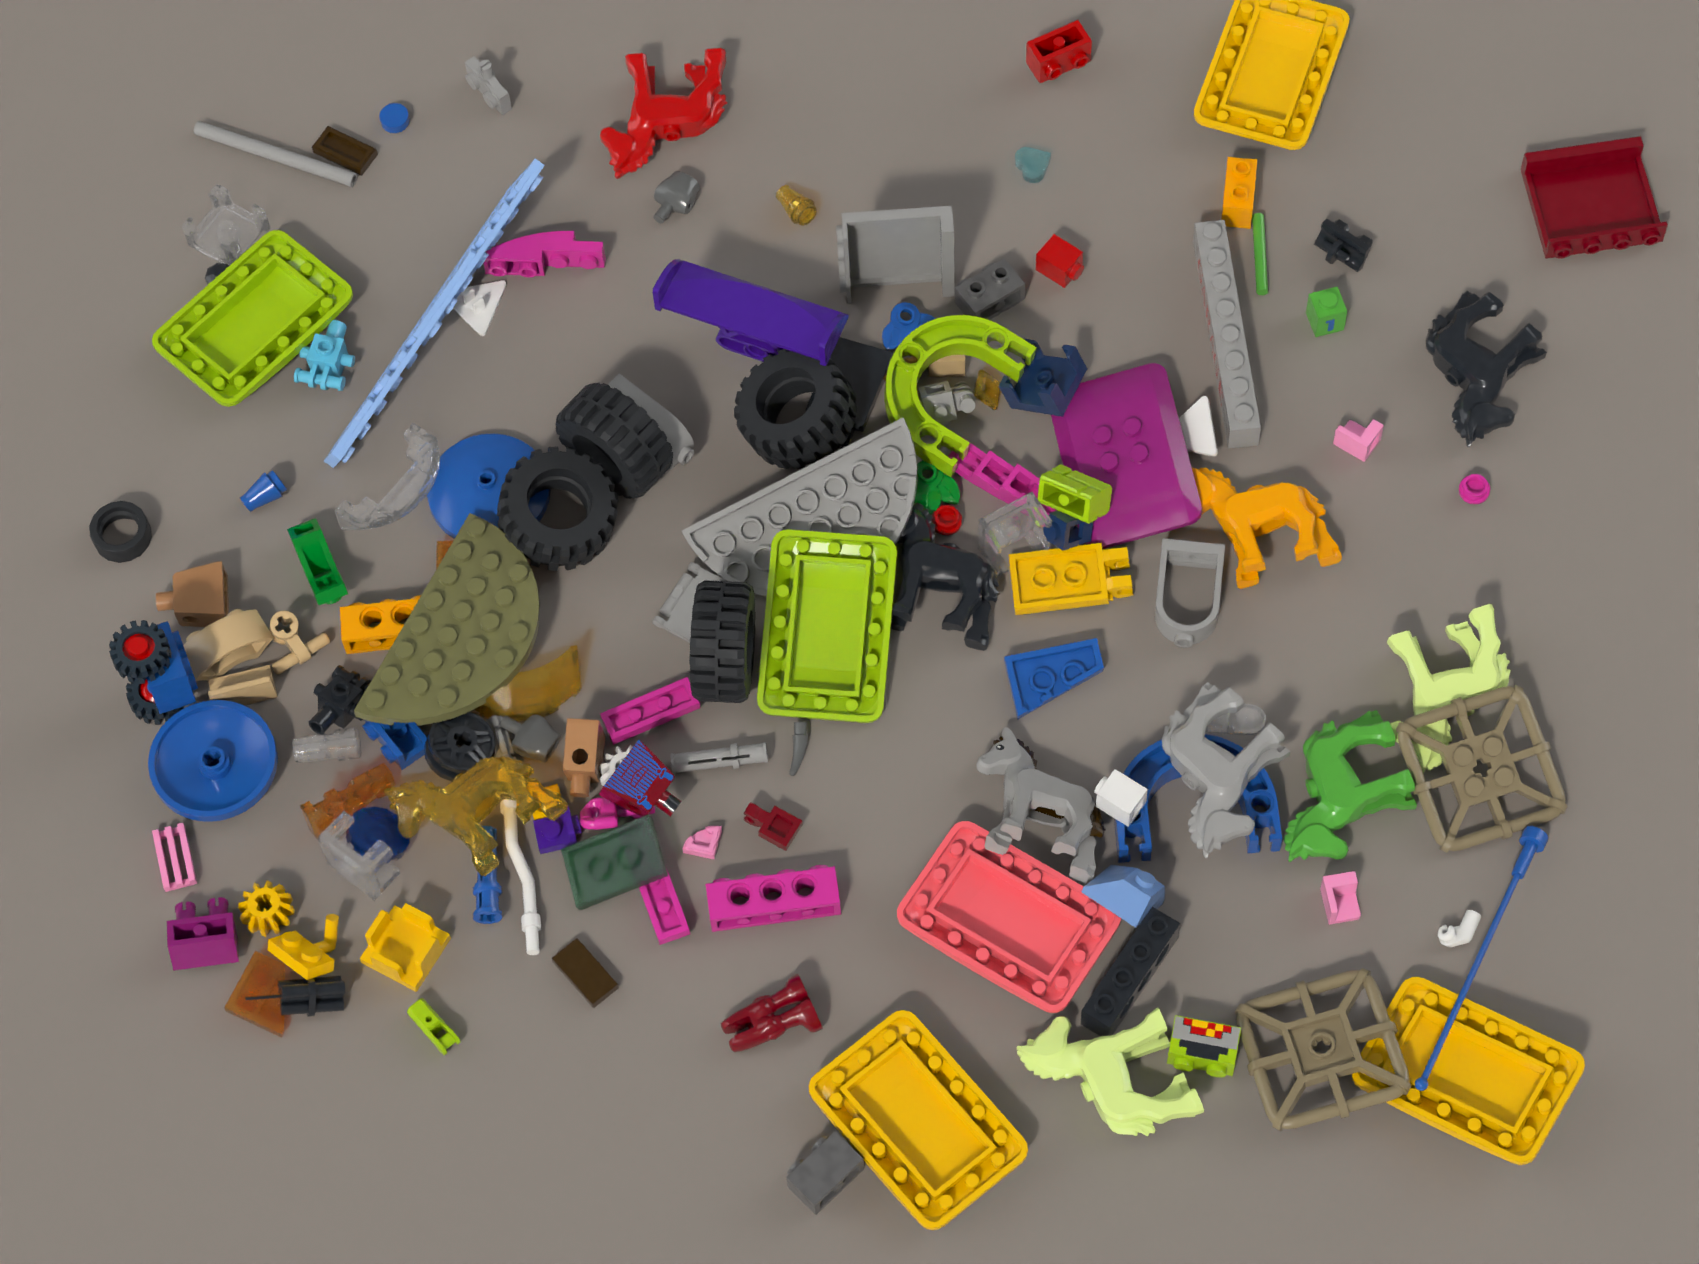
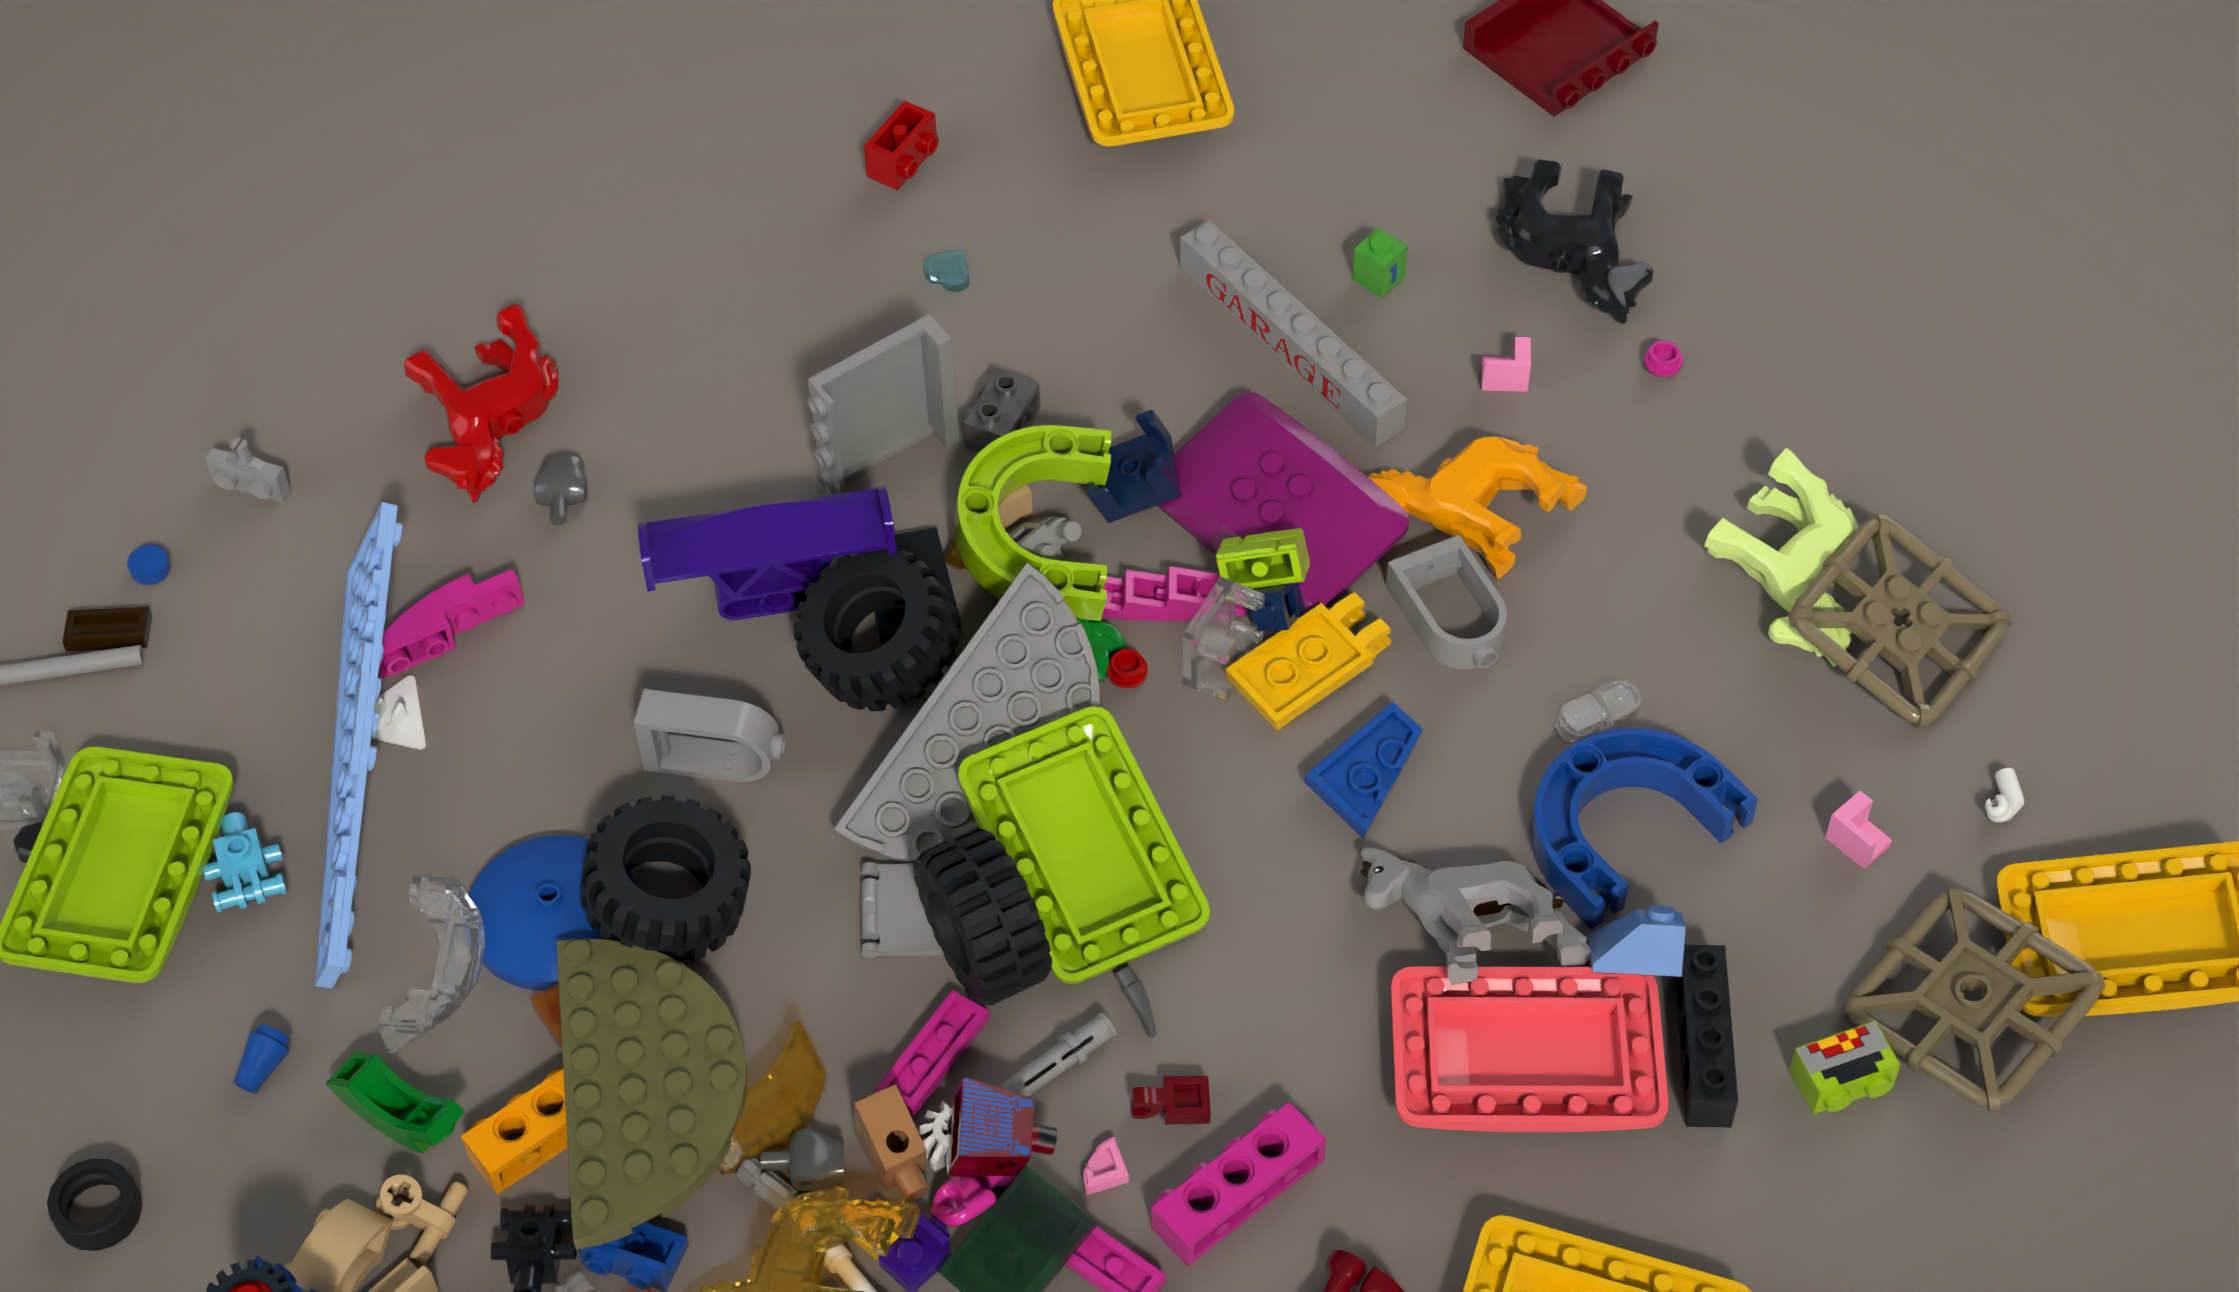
camera: 35 degrees left, 10 degrees down
(197, 595) = (254, 1222): medium nougat torso -> none
(443, 740) = (726, 1218): black wheel -> none
(617, 436) = (693, 752): black tyre -> none
(797, 206) = (714, 431): clear yellow cone -> none
(898, 328) = (935, 500): blue plate -> none
(944, 570) = (1177, 715): black animal -> none
(987, 389) = (1072, 510): clear yellow slope -> none
(1059, 261) = (1056, 347): red brick -> none
(1106, 1075) = (1770, 1160): yellowish green animal -> none
(1120, 797) = (1559, 845): white brick -> none
(1199, 428) = (1340, 434): white piece -> none
(1216, 770) = (1637, 760): light grey animal -> none
(1239, 192) = (1198, 190): light orange brick -> none
(1260, 254) = (1262, 244): bright green bar -> none
(1338, 789) = (1772, 719): bright green animal -> none
(1342, 245) = (1345, 193): black hips -> none
(1532, 840) = (2004, 667): blue piece -> none

